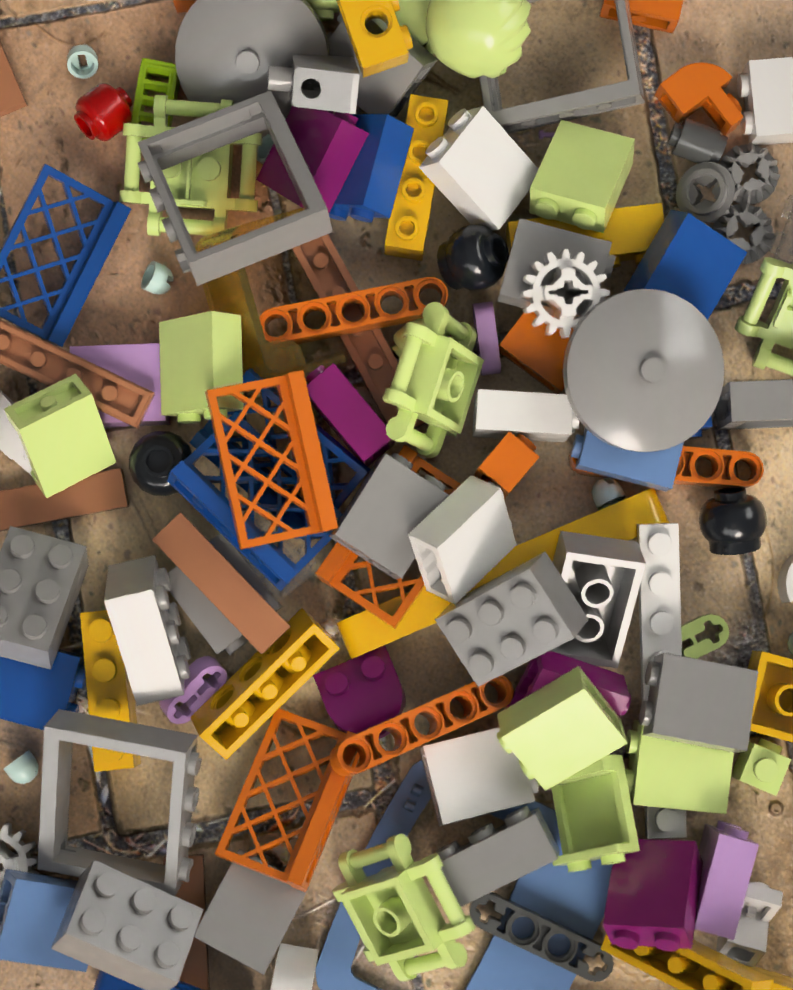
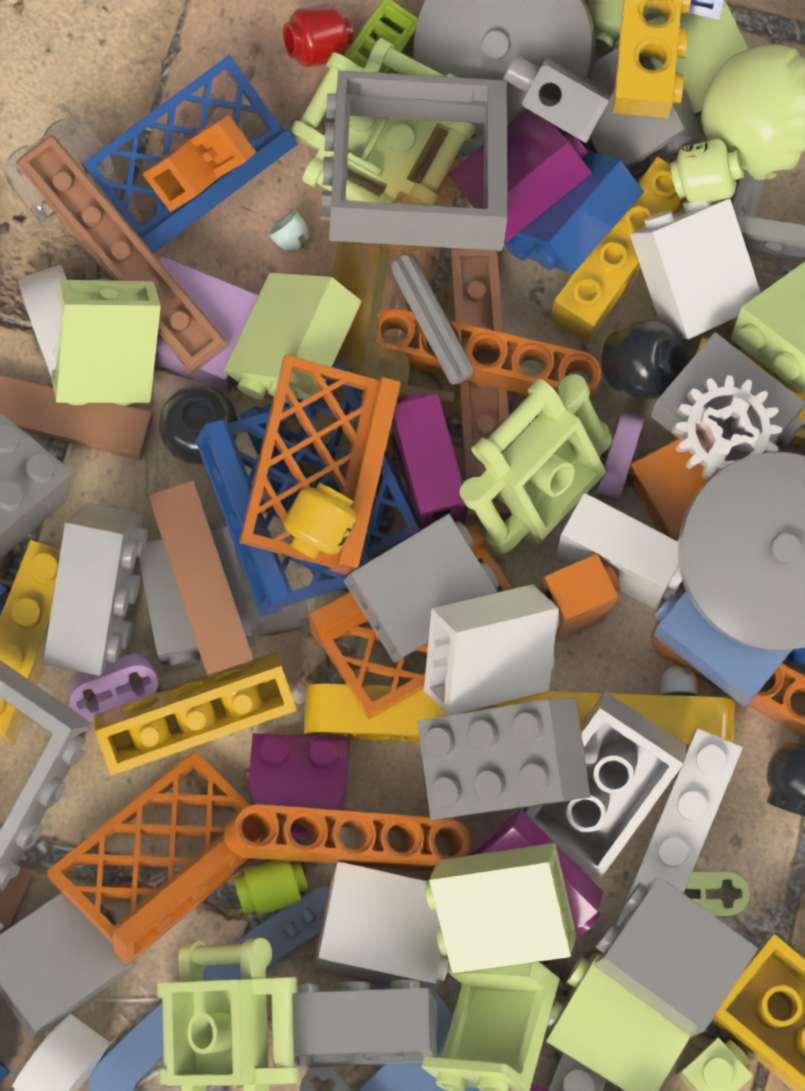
camera: 25 degrees right, 10 degrees down
(63, 262) = (199, 162): none -> orange brick
(294, 507) = (320, 521): none -> yellow head
(301, 305) = (432, 319): none -> light grey axle
(380, 783) = (270, 886): none -> lime brick
(456, 92) = (706, 171): none -> yellowish green head

